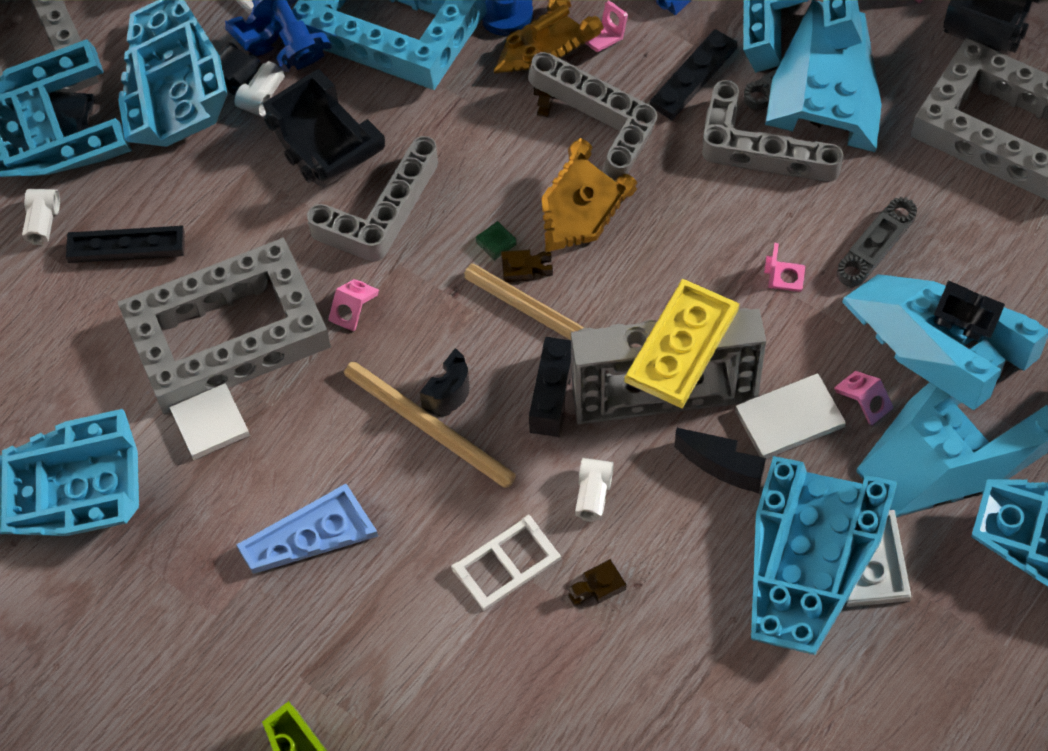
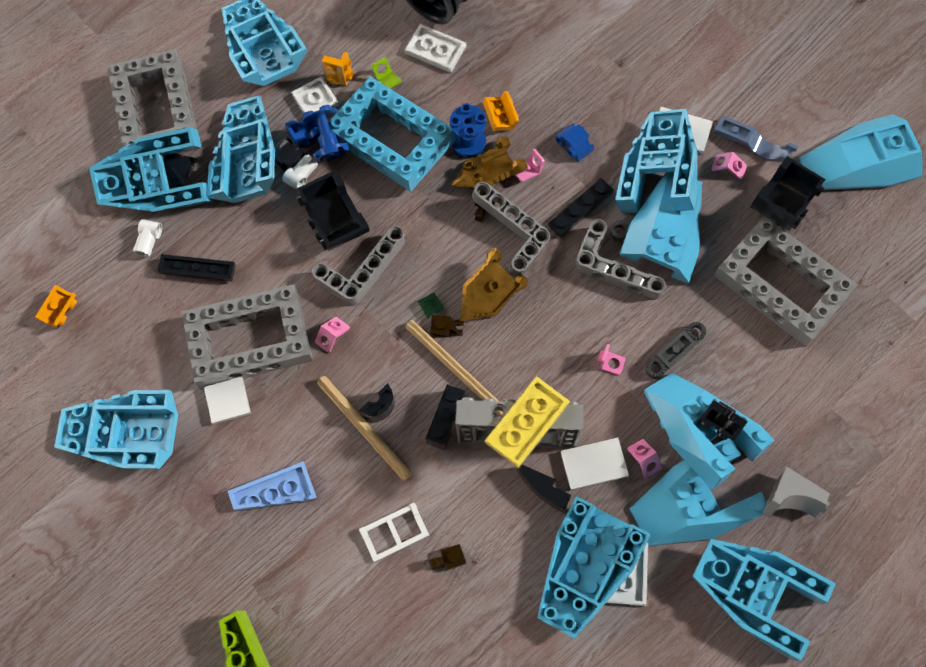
camera: 10 degrees right, 10 degrees up
(594, 481) = (459, 488): white piece -> none

